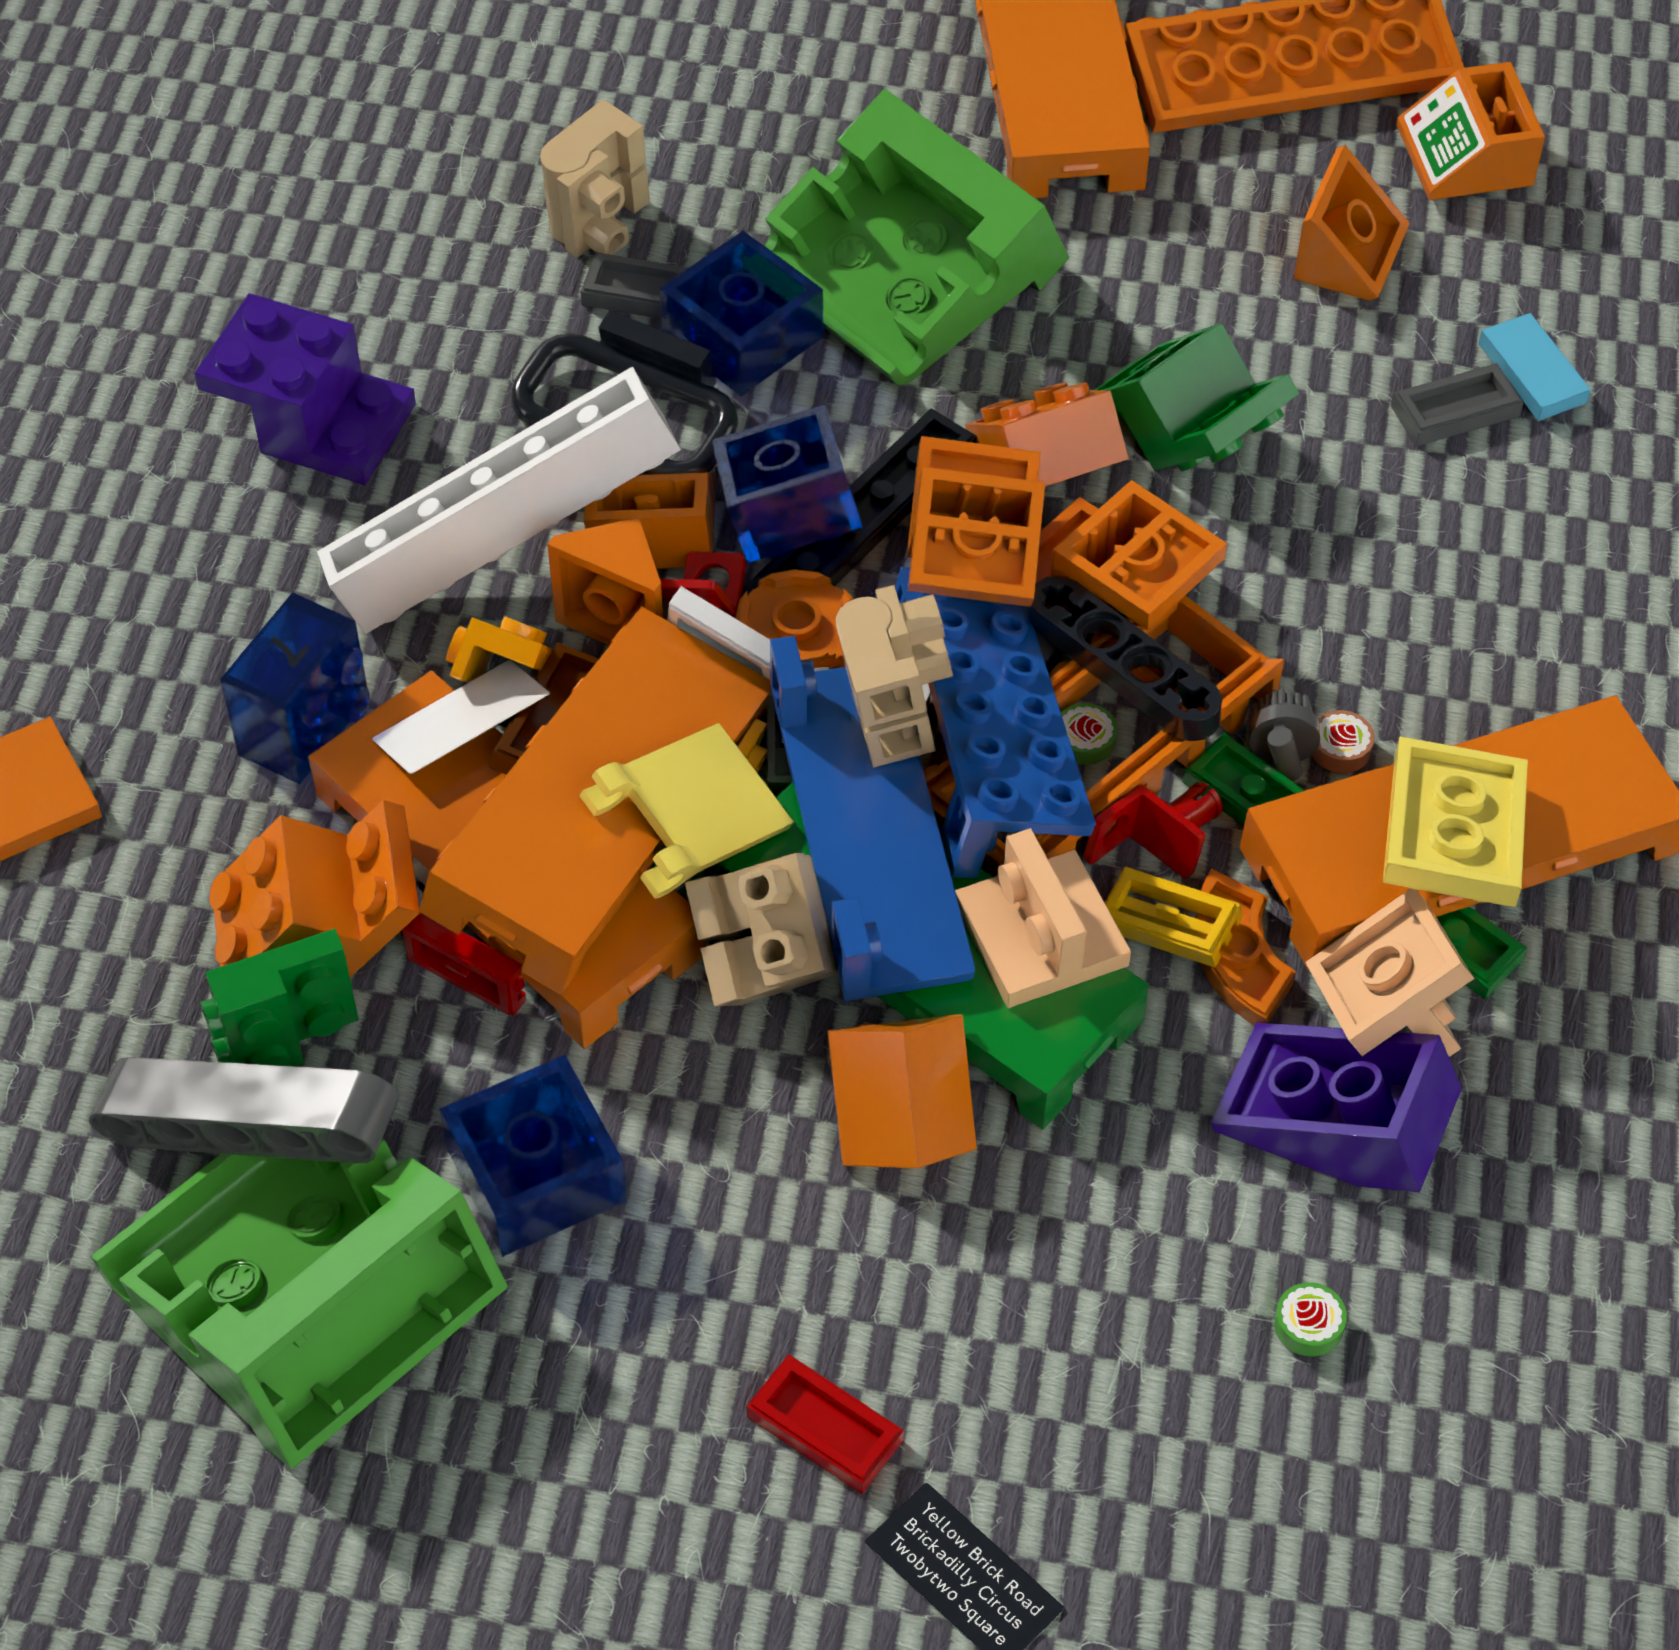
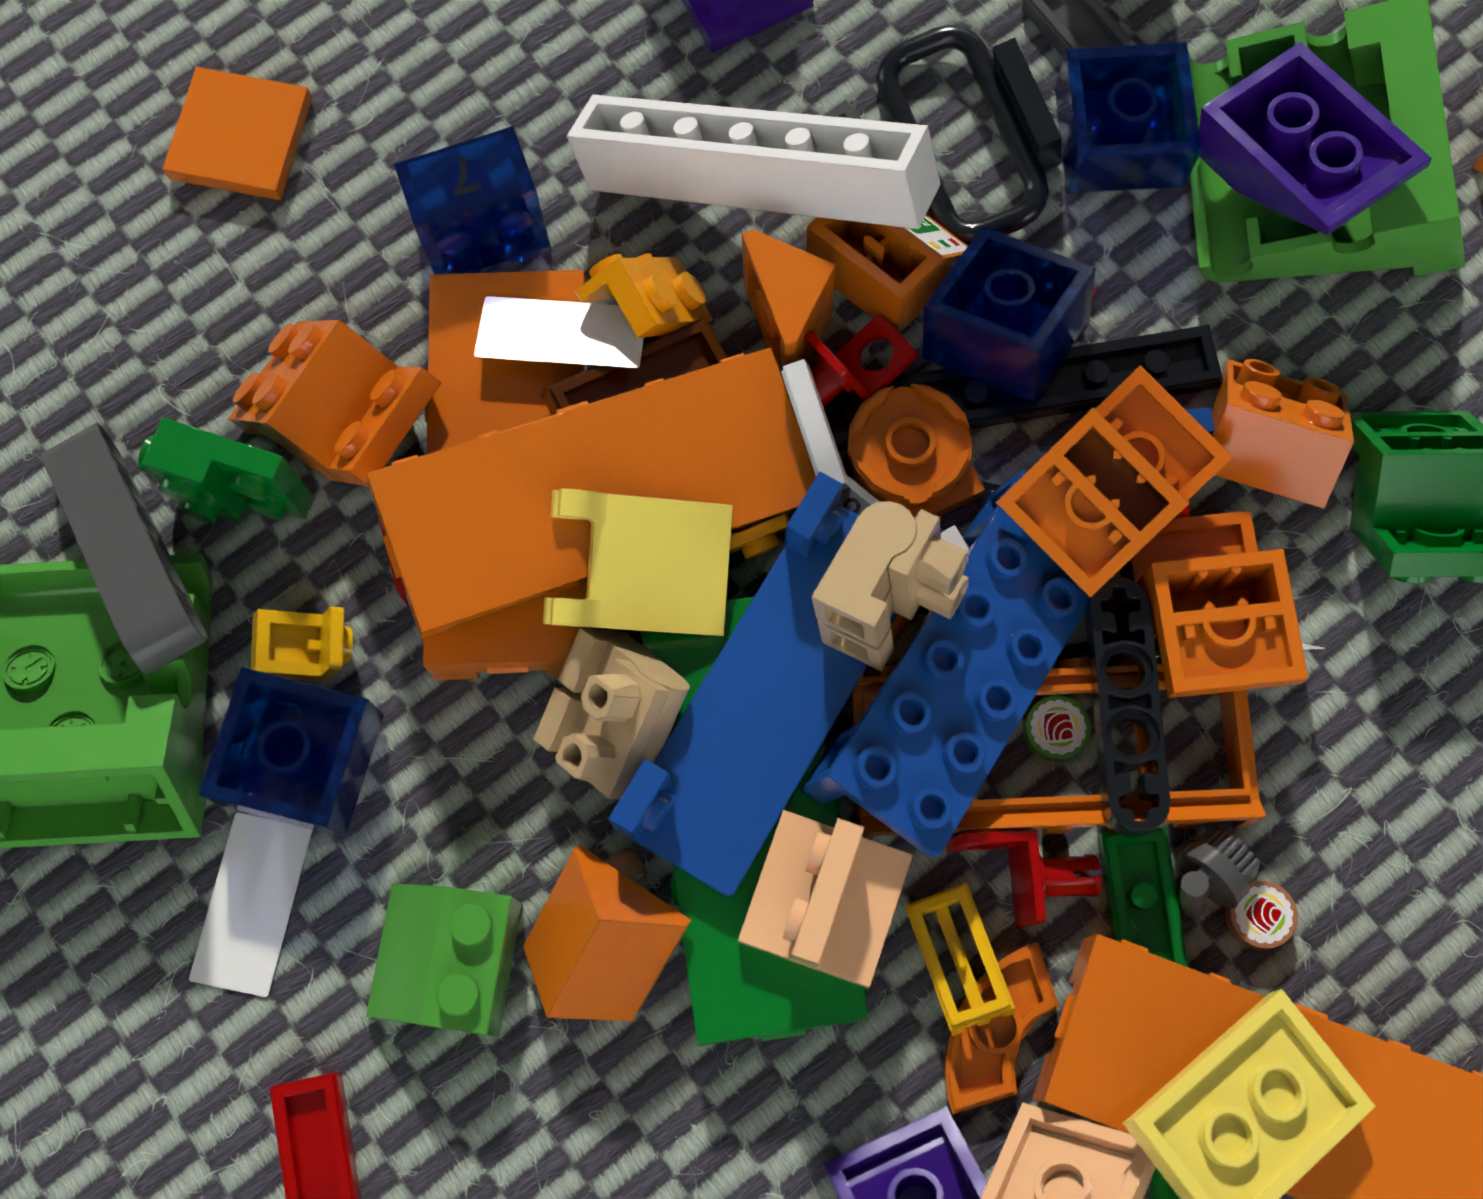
camera: 45 degrees right, 20 degrees up
(470, 1070) = (300, 644): none -> yellow bracket
(595, 1311) = (250, 905): none -> white sticker
(795, 1208) = (445, 958): none -> bright green slope
(892, 233) = (1305, 142): none -> dark purple slope

